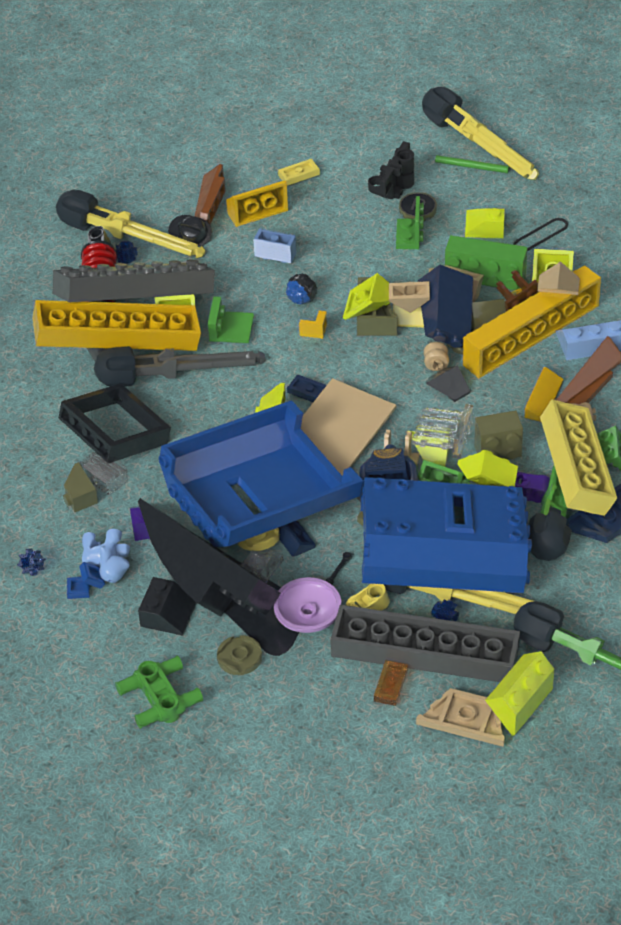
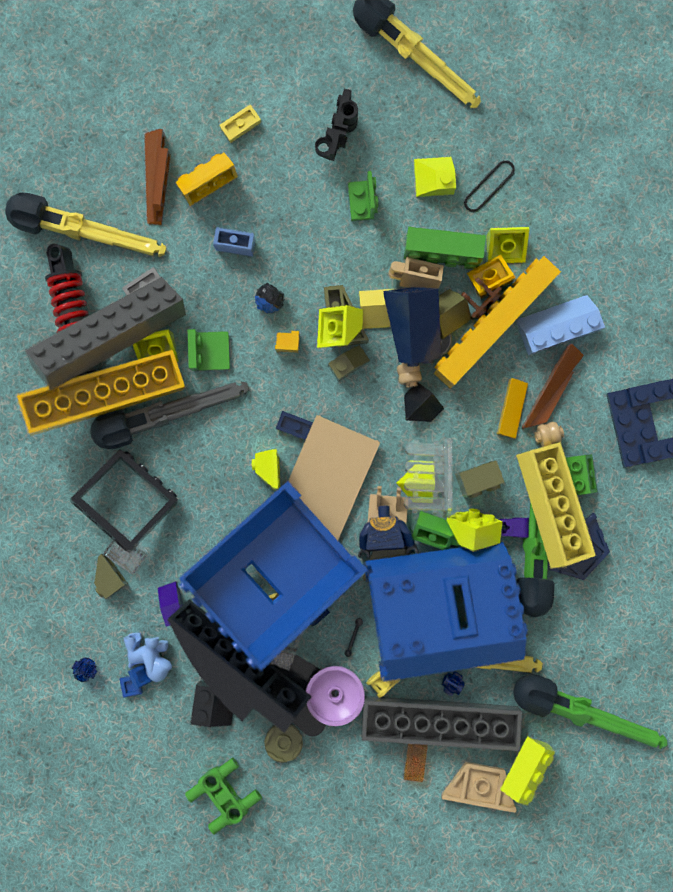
camera: 10 degrees left, 40 degrees up
(126, 252) = (88, 257): clear blue gear -> none
(191, 229) = (146, 222): black piece -> none
(371, 345) = (348, 362): none -> olive slope
(407, 205) = (365, 157): tile -> none
(409, 294) = (378, 313): tan slope -> none
(472, 164) = (412, 90): bright green bar -> none
(559, 280) = (522, 291): tan slope -> none

